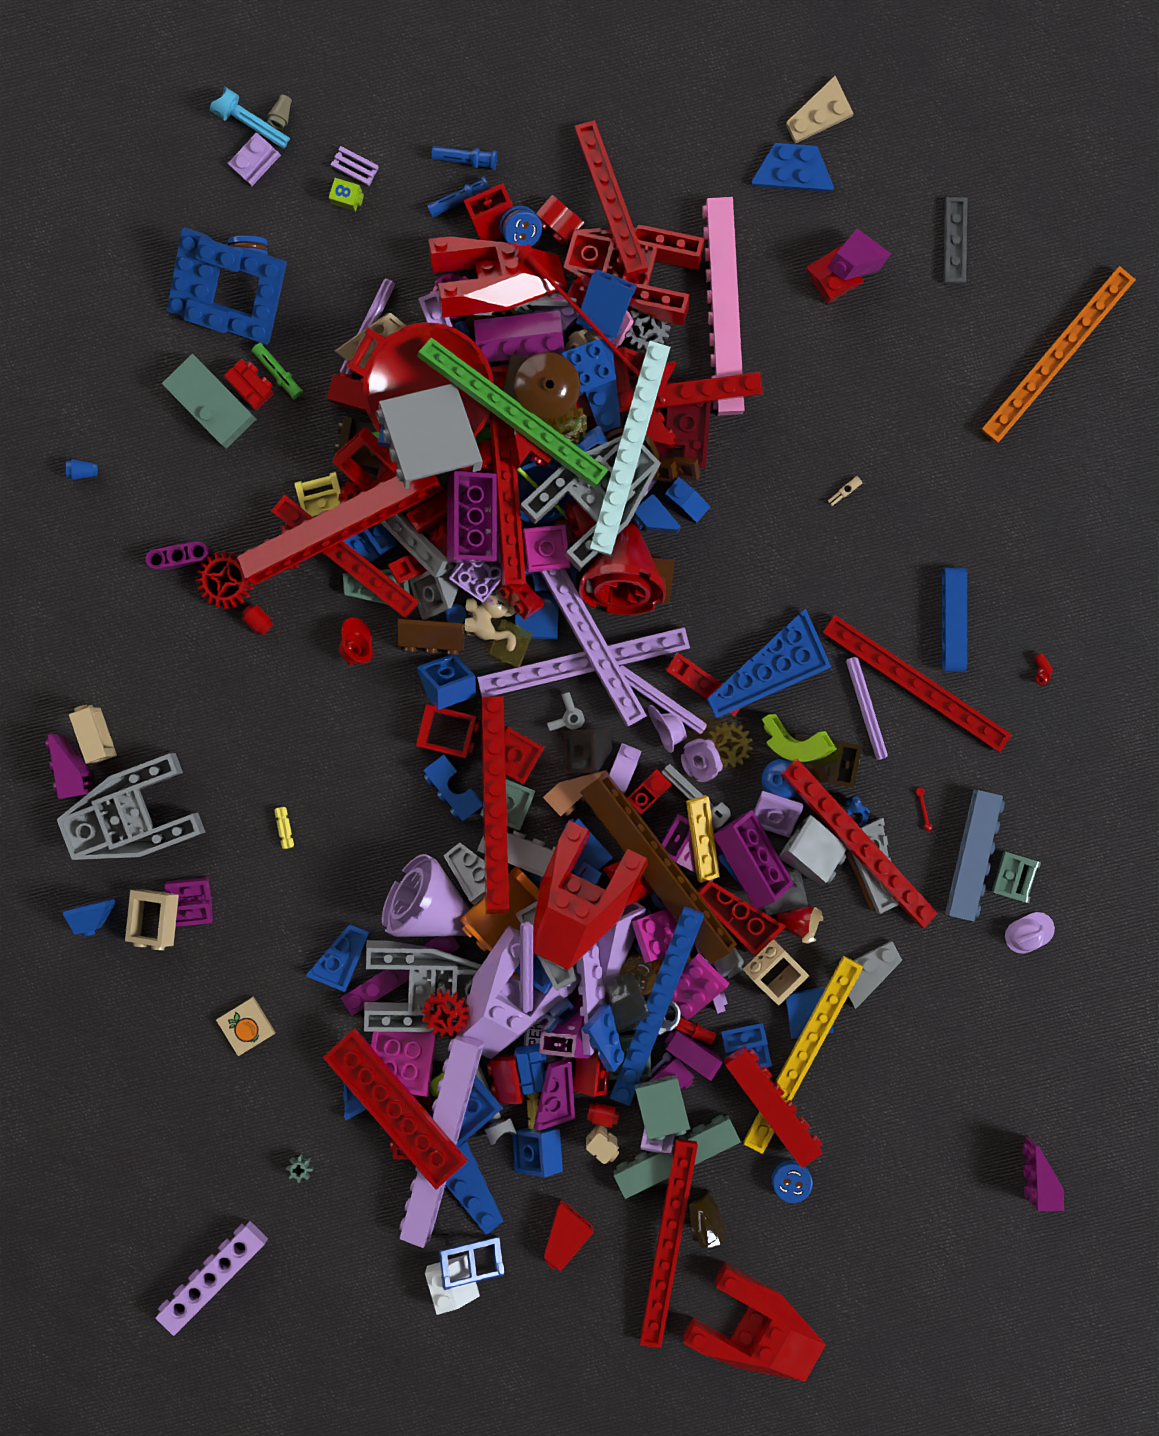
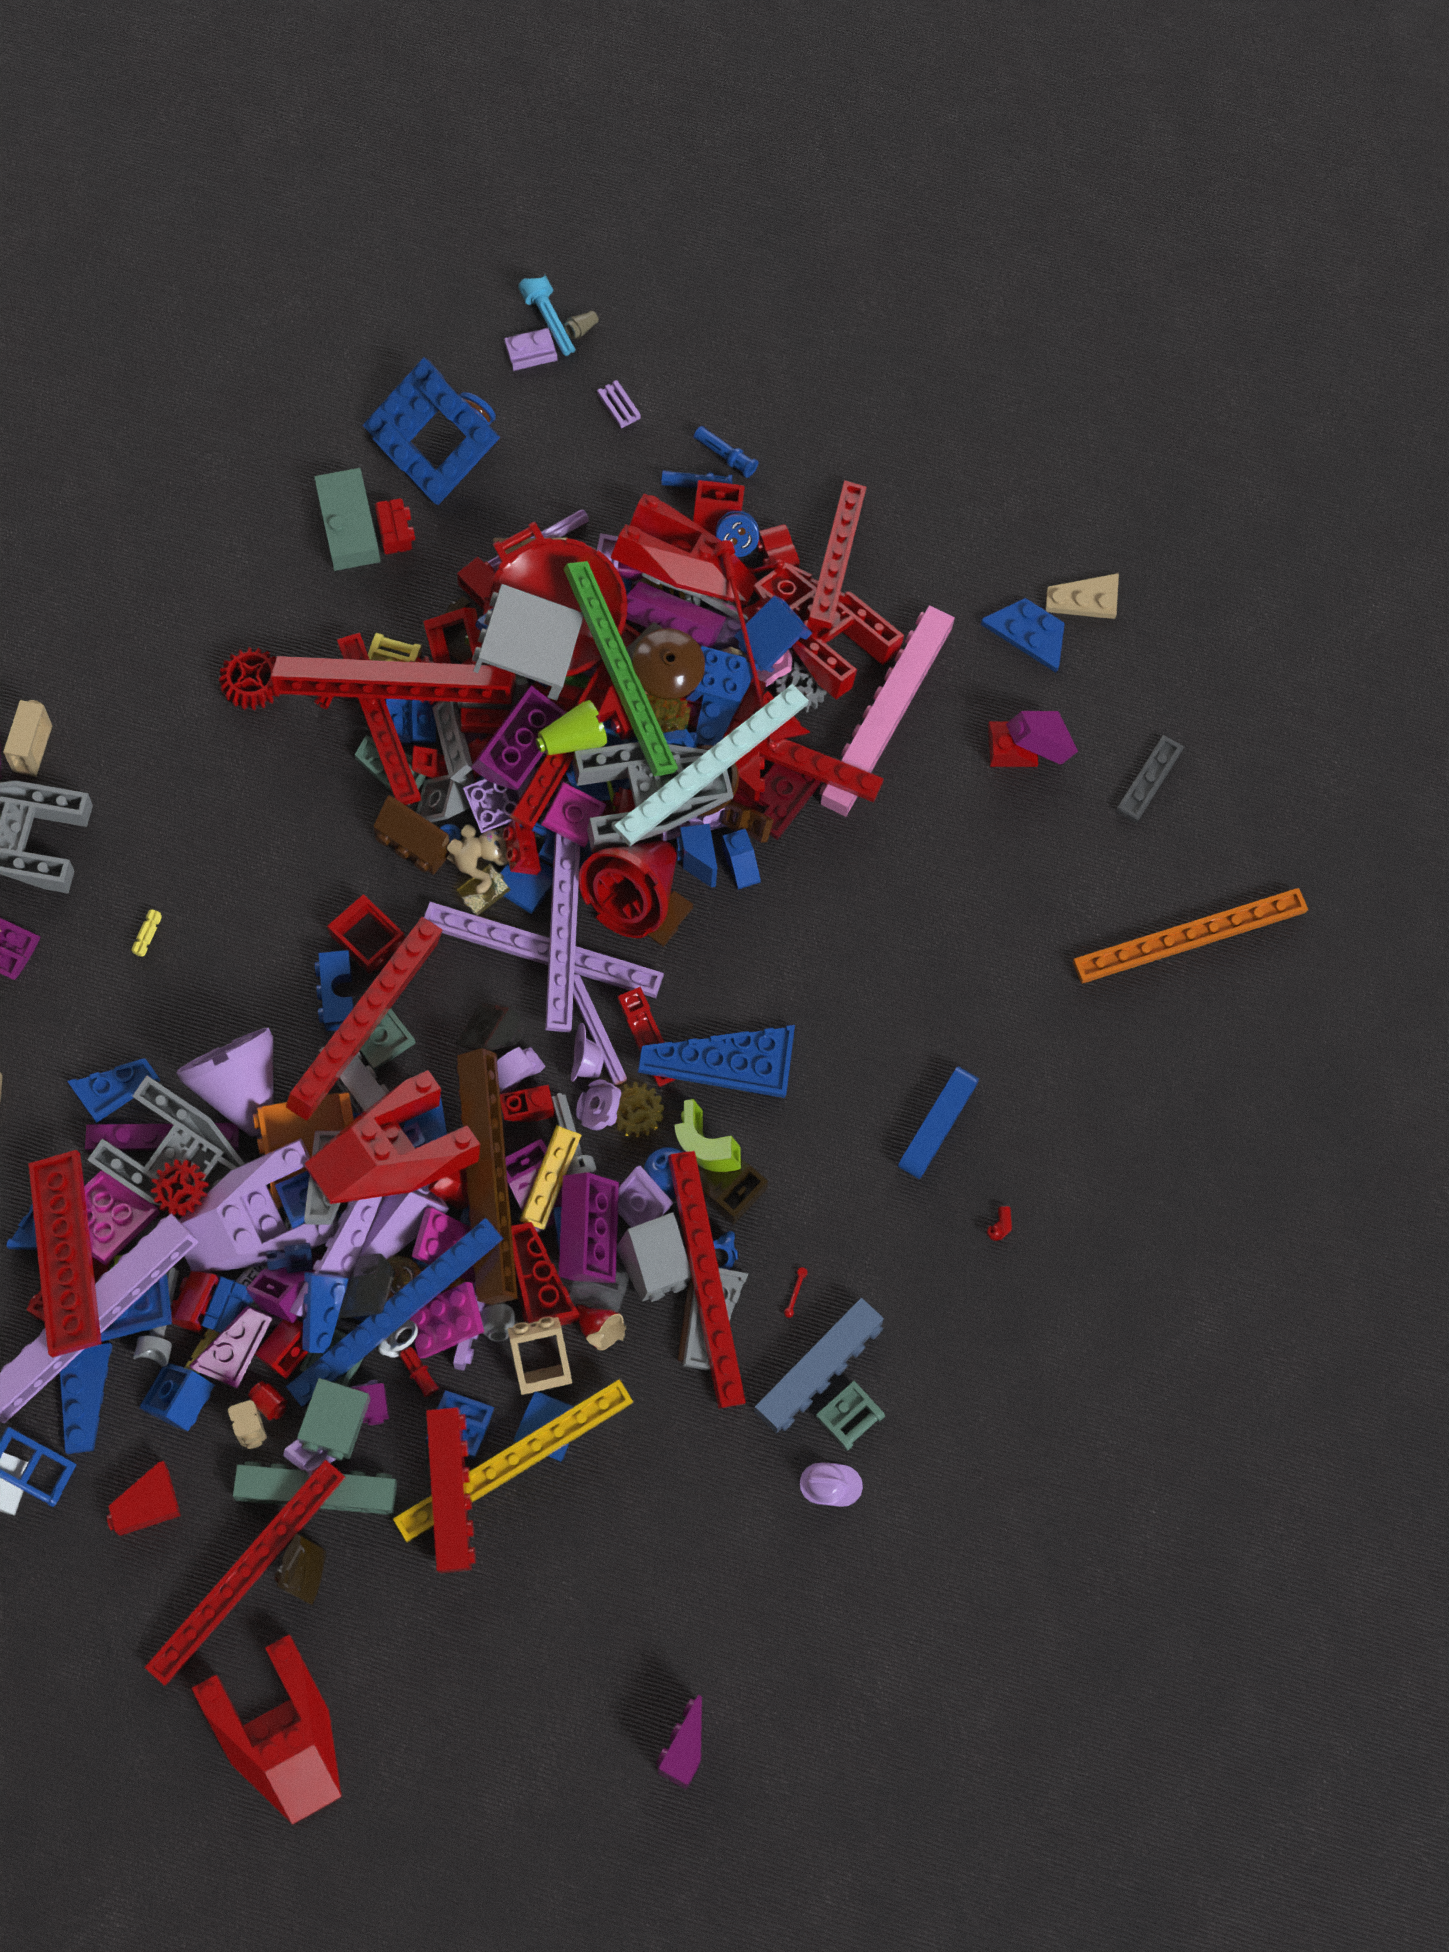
camera: 25 degrees right, 20 degrees down
(80, 469) = (185, 509): blue cone -> none
(168, 553) = (215, 625): magenta beam -> none
(257, 619) = (256, 730): red brick -> none
(292, 389) = (431, 552): bright green pin -> none
(346, 194) = (593, 421): lime brick -> none
(356, 642) = (335, 802): red piece -> none
(447, 681) = (397, 887): blue slope -> none
(468, 870) = (293, 1066): light grey wing -> none
(510, 490) = (573, 731): none -> lime cone
(520, 755) = (421, 1000): red tile -> none
(526, 967) = (290, 1181): lavender axle -> none
(568, 793) = (441, 1060): nougat slope -> none
(571, 235) = (779, 564): none -> red hinge
(571, 719) = (497, 993): light grey piece -> none
(693, 1053) = (402, 1390): magenta slope -> none
(791, 1181) = (418, 1591): blue head -> none
(853, 484) = (915, 940): tan pin -> none
(866, 708) = (797, 1158): lavender axle -> none
(876, 967) = (638, 1423): light grey wing -> none
(916, 683) = (864, 1163): red plate -> none

